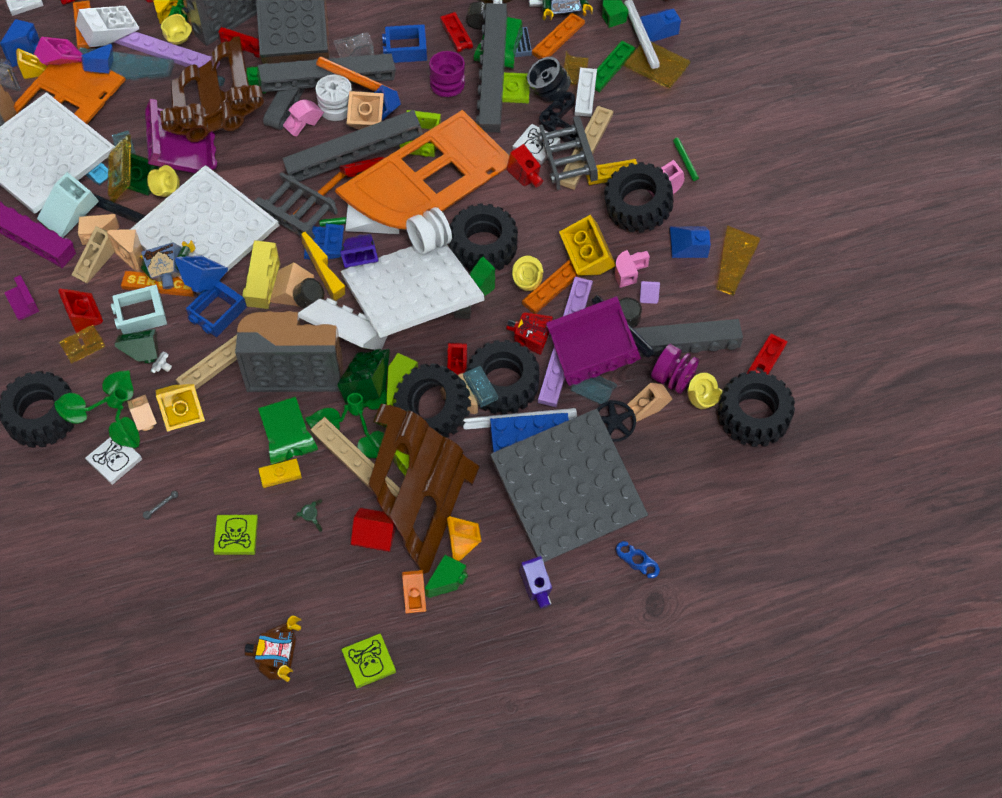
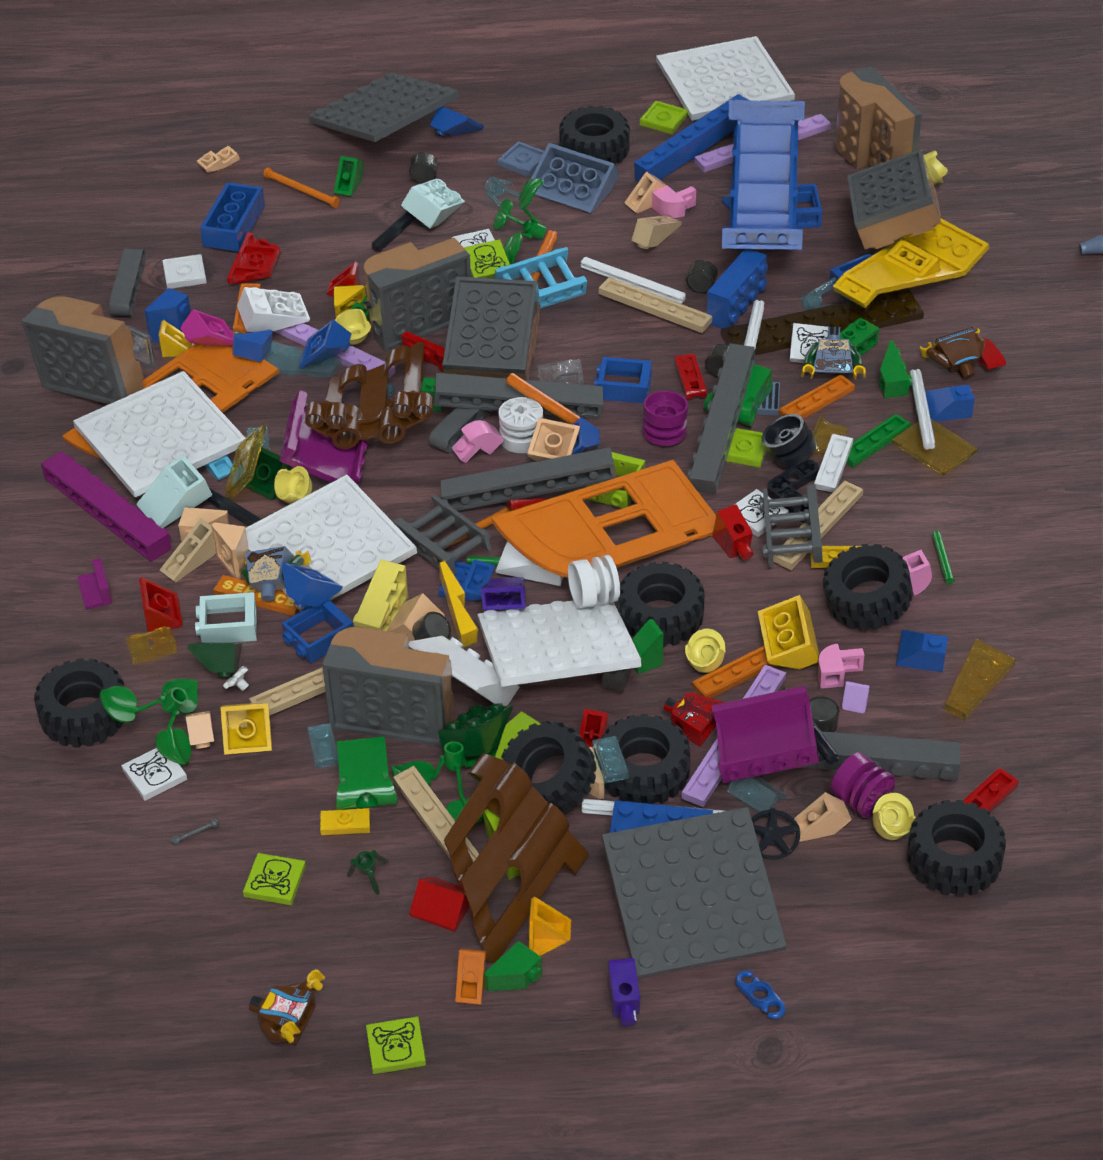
camera: 15 degrees right, 15 degrees down
(158, 49) = (325, 344): none -> blue slope
(245, 409) = (323, 745): none -> clear light blue plate

